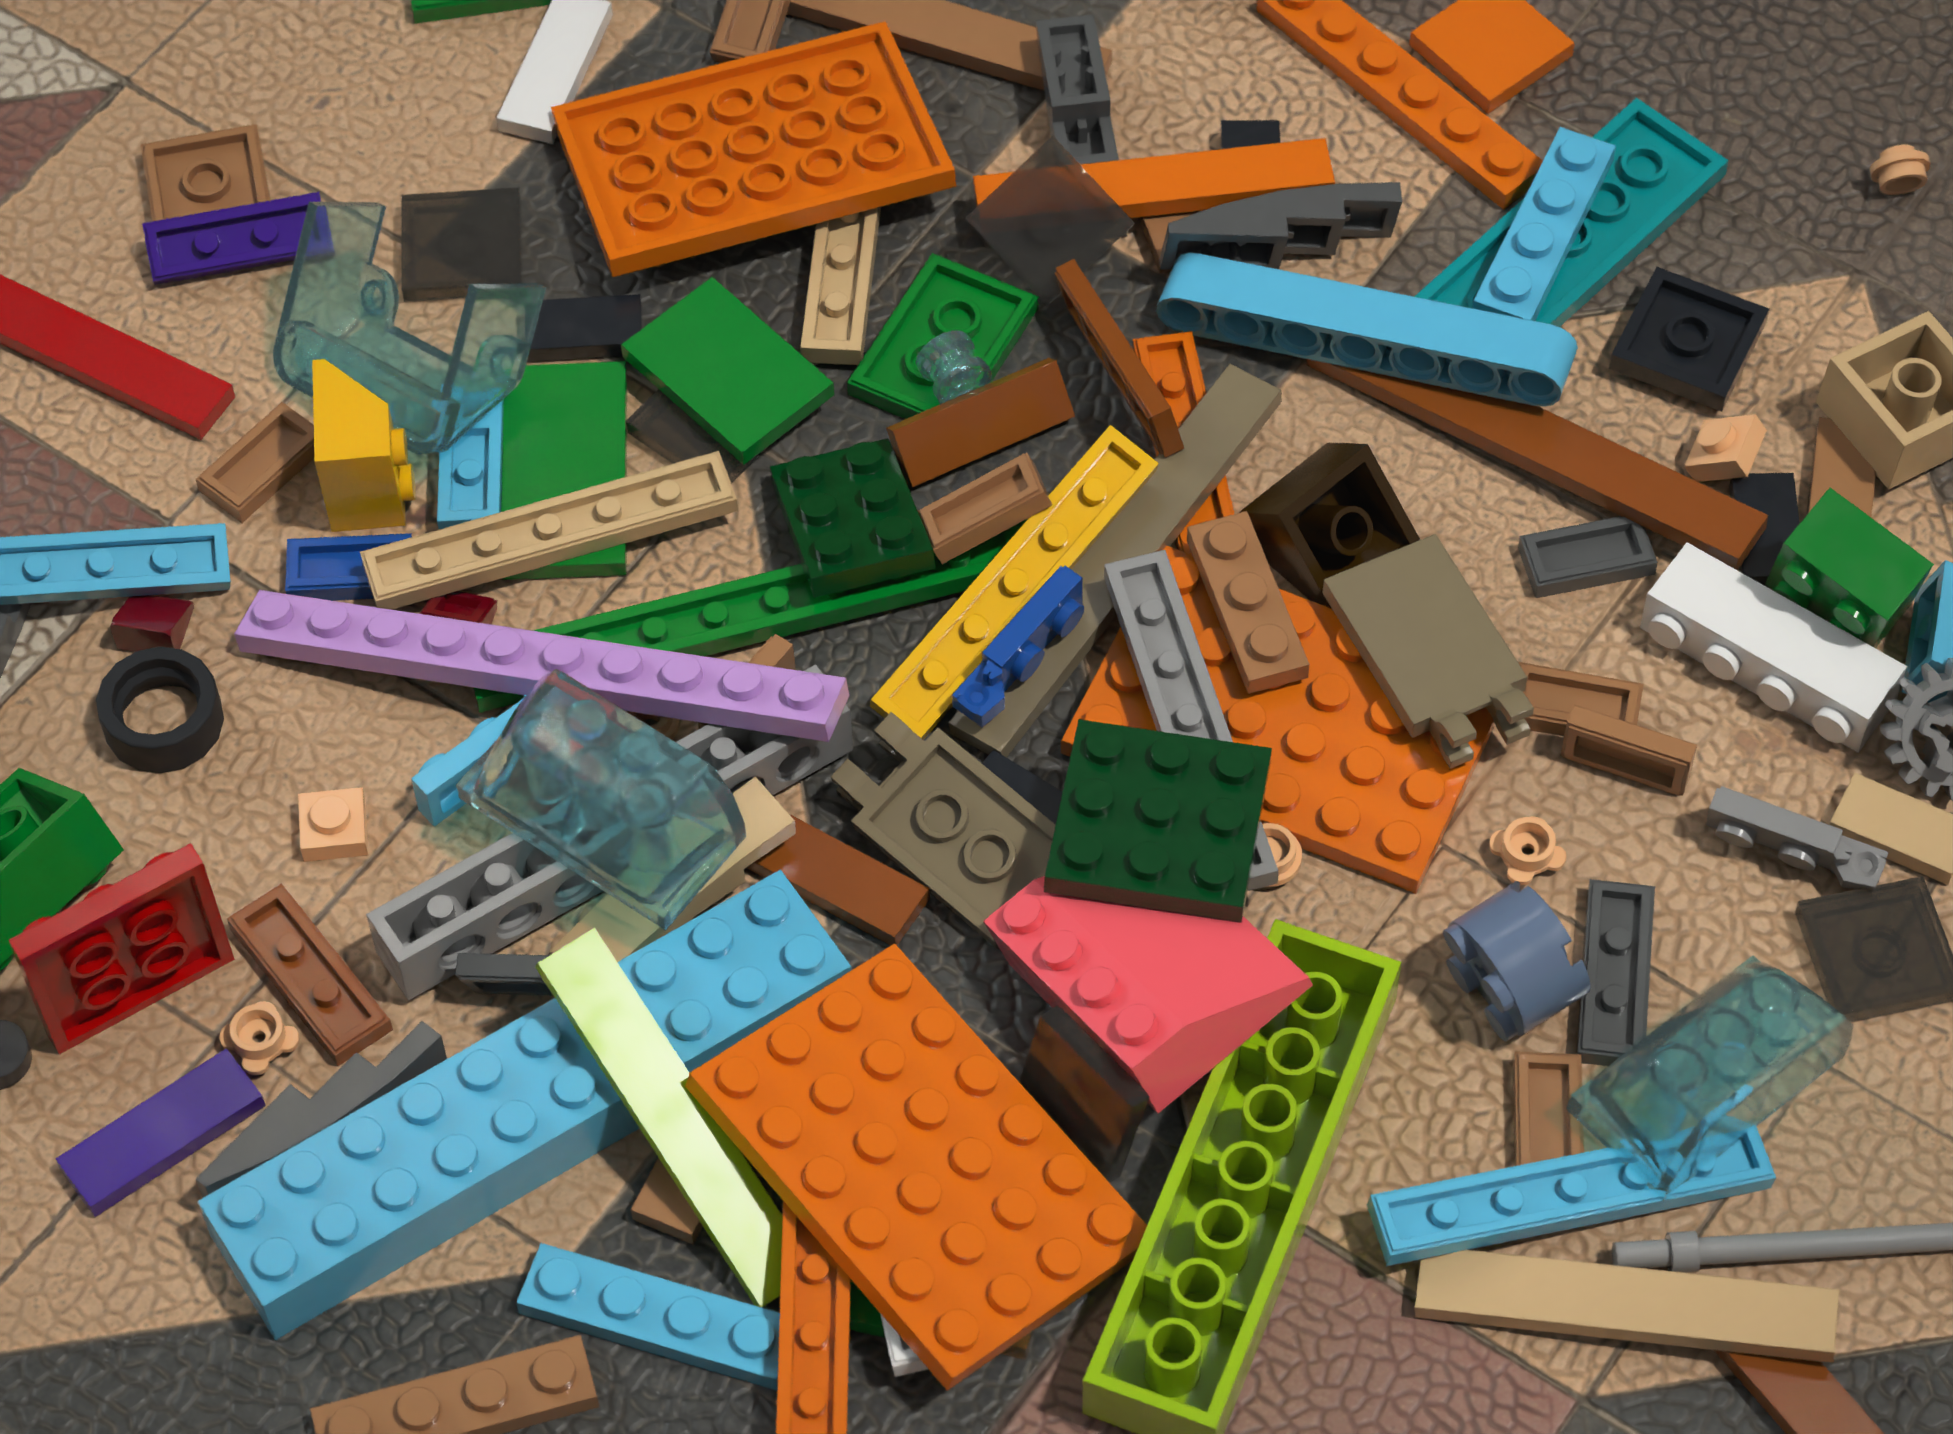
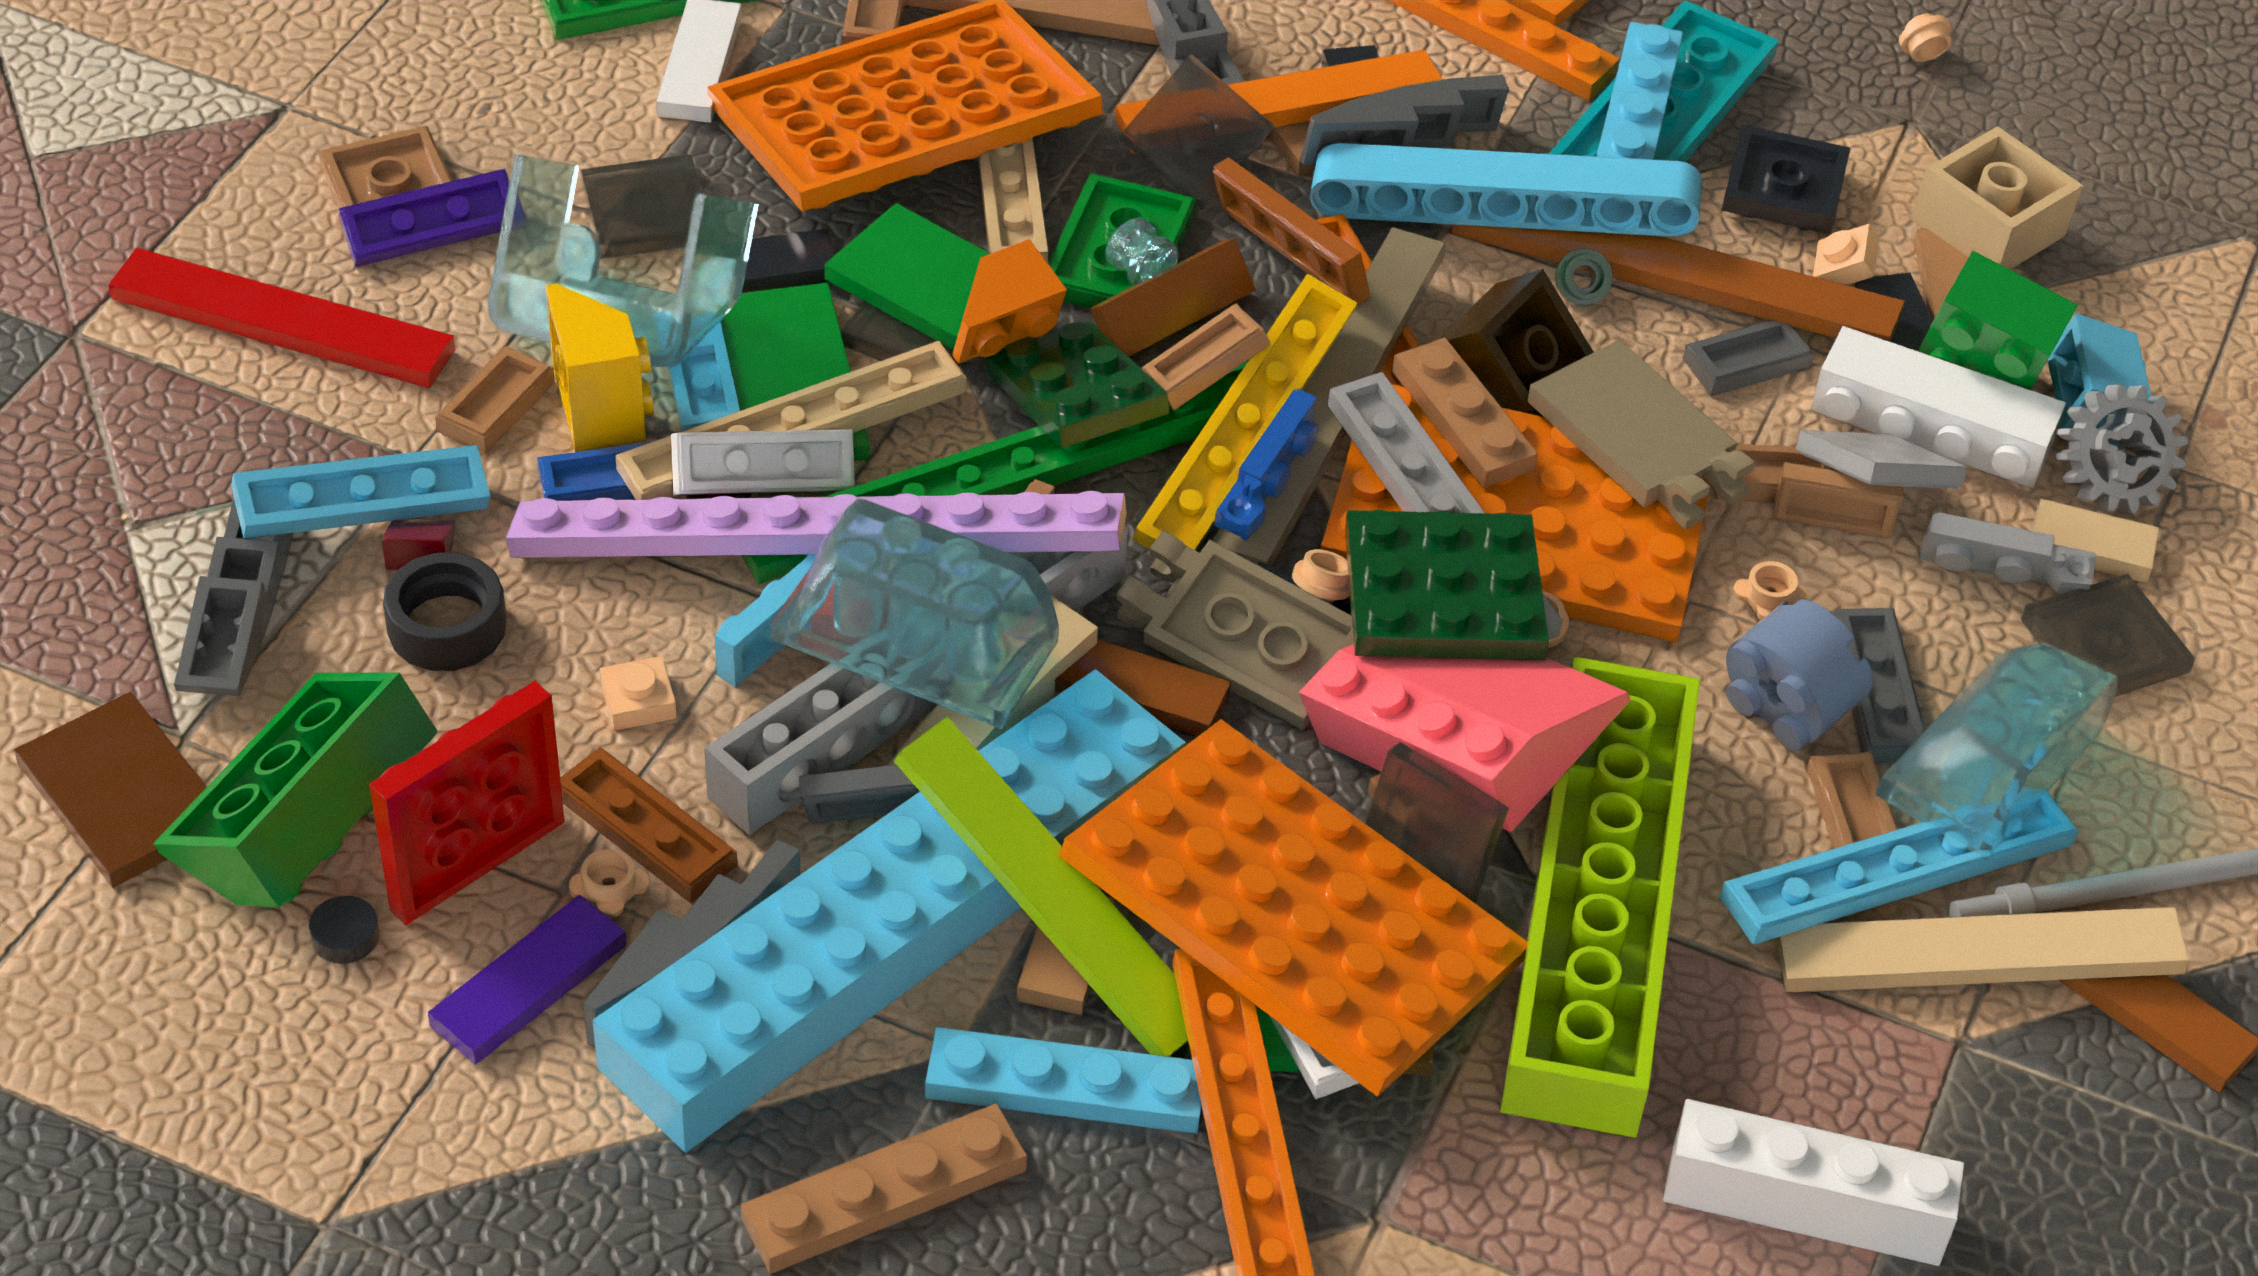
camera: 15 degrees left, 10 degrees down
(506, 577) = (762, 461): none -> white tile
(791, 417) = (1009, 300): none -> orange slope
(1043, 780) = (1323, 575): none -> light nougat plate
(1434, 458) = (1600, 276): none -> dark green plate
(1683, 711) = (1881, 459): none -> light grey tile

